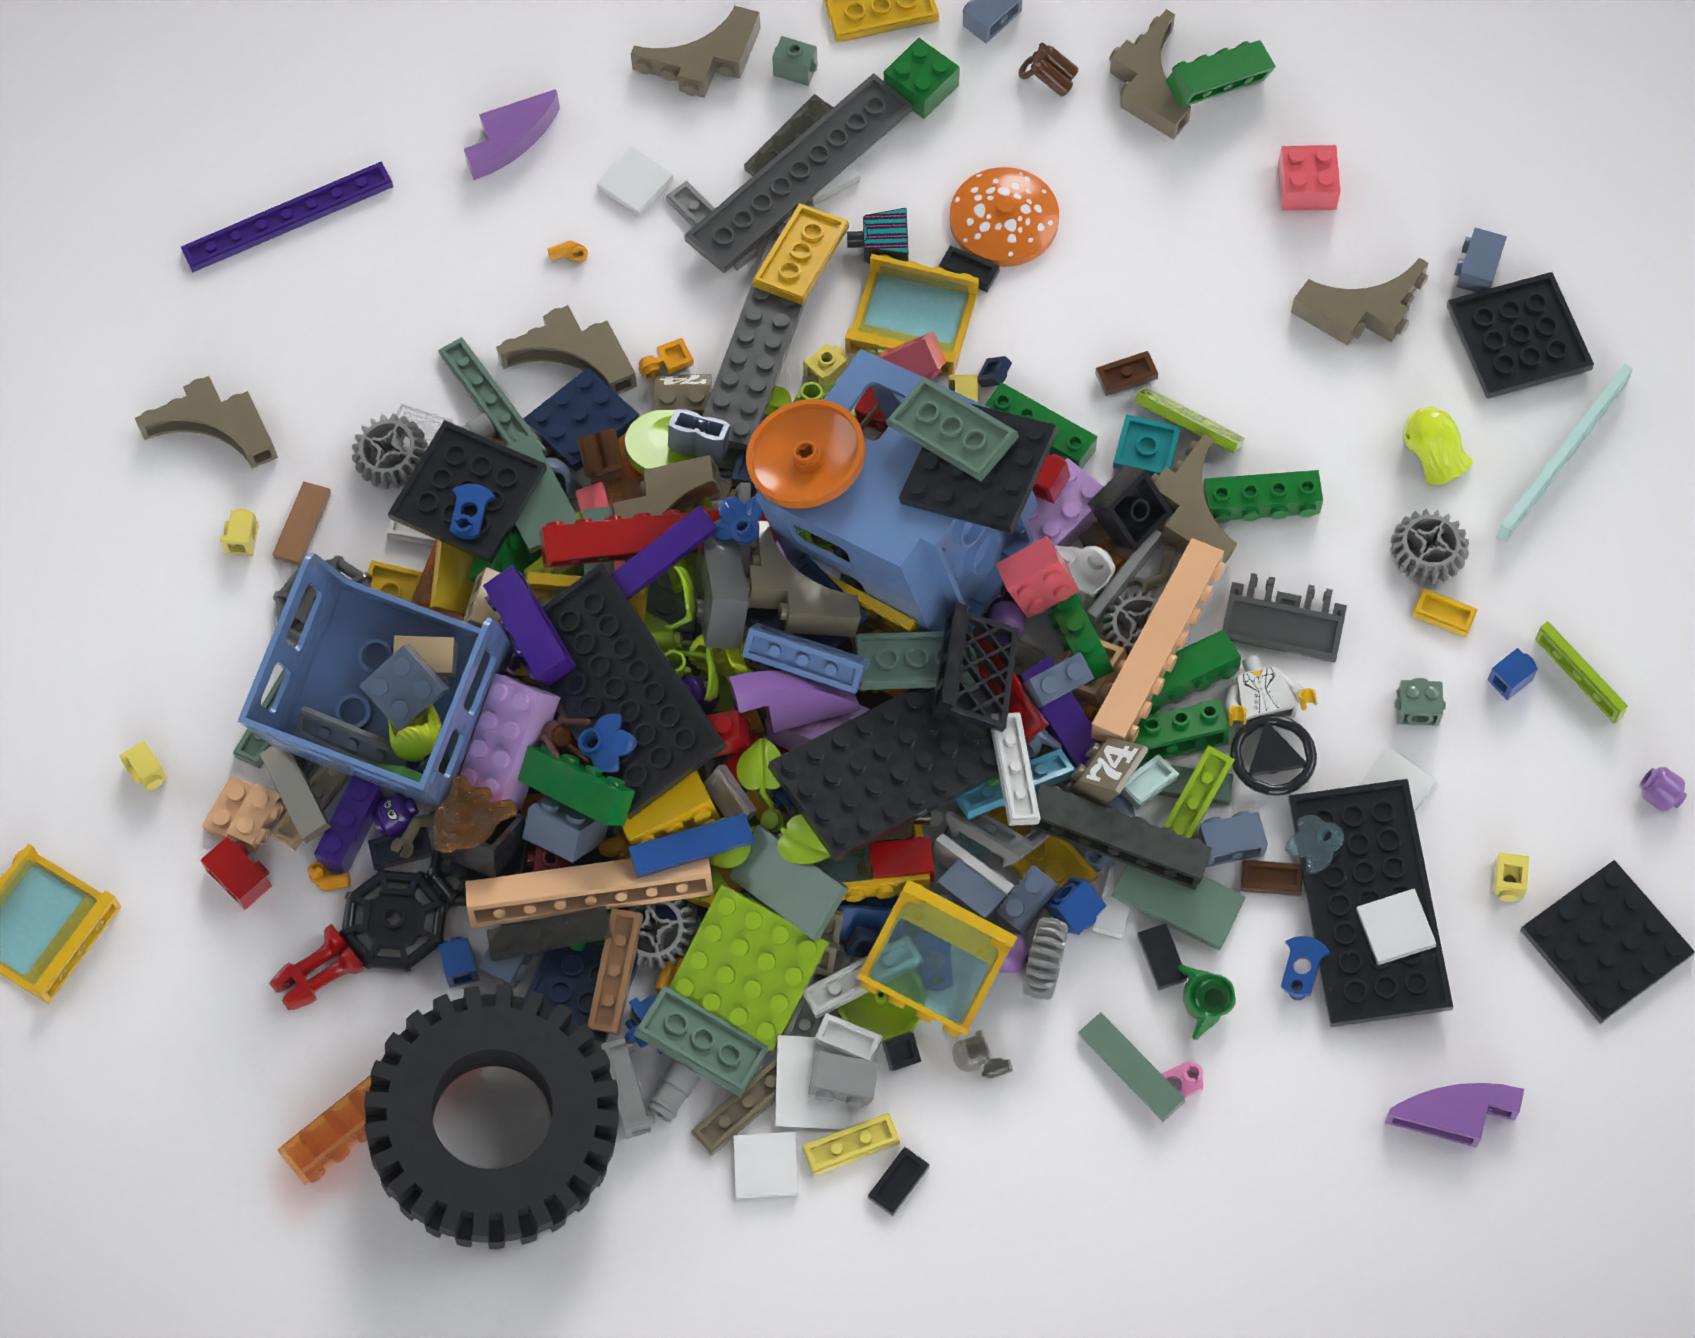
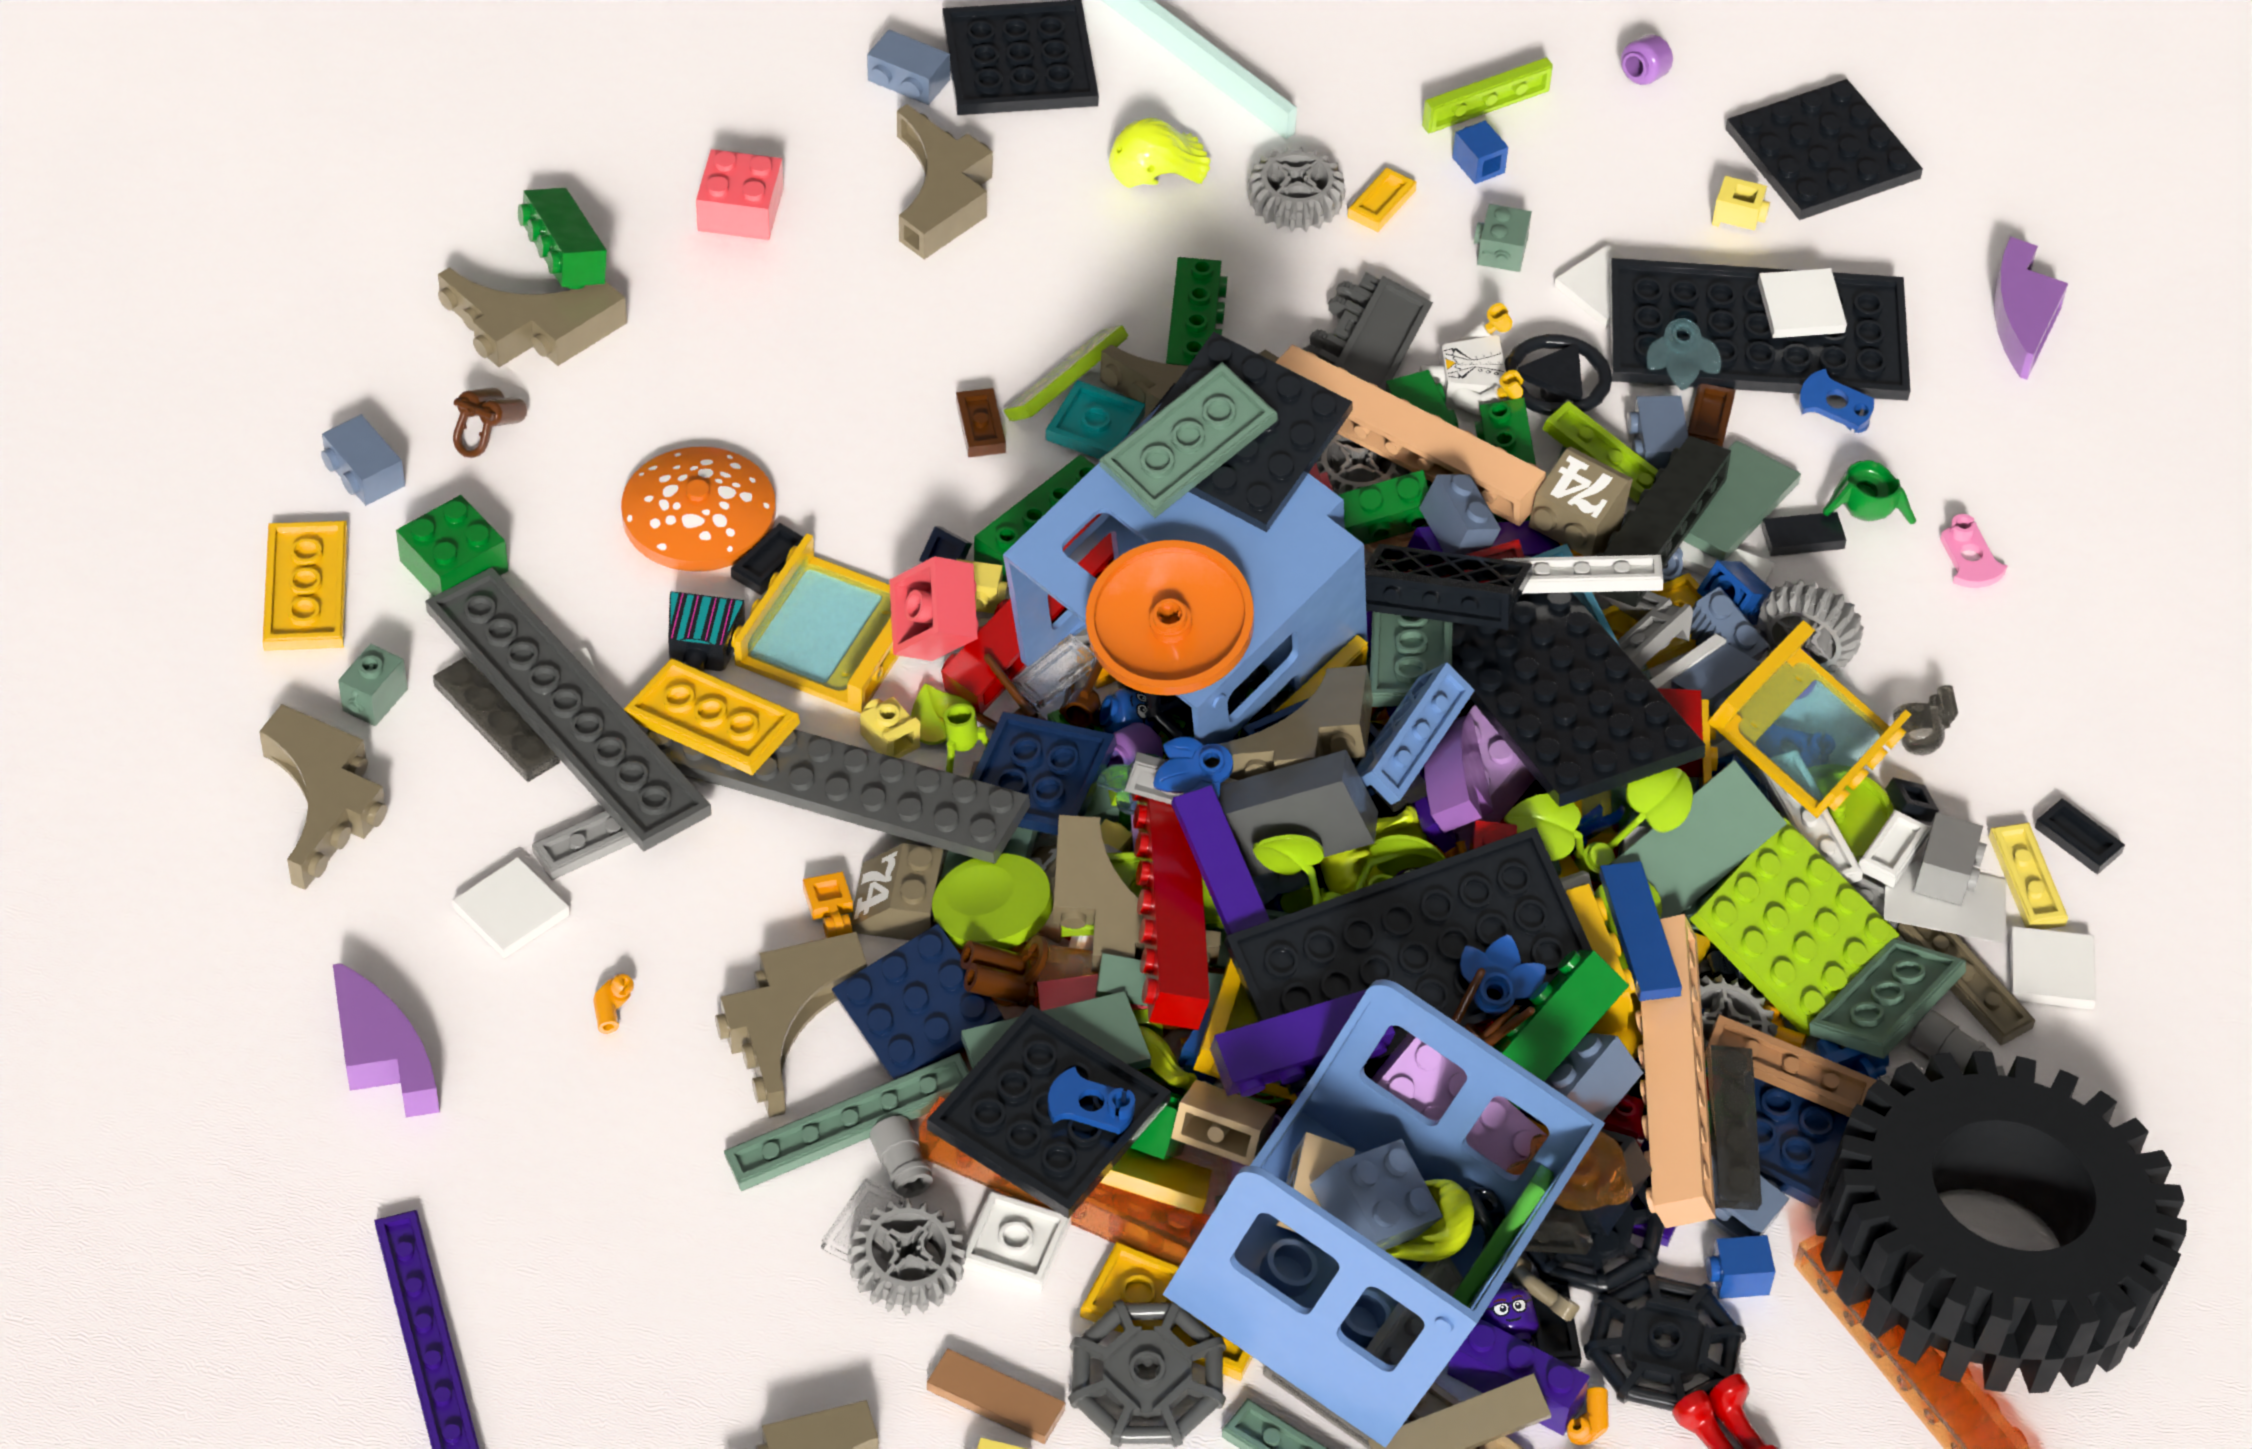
camera: 85 degrees left, 15 degrees down
(698, 435) = (1009, 840): sand blue brick -> none
(1132, 1067) = (1947, 583): sand green tile -> none

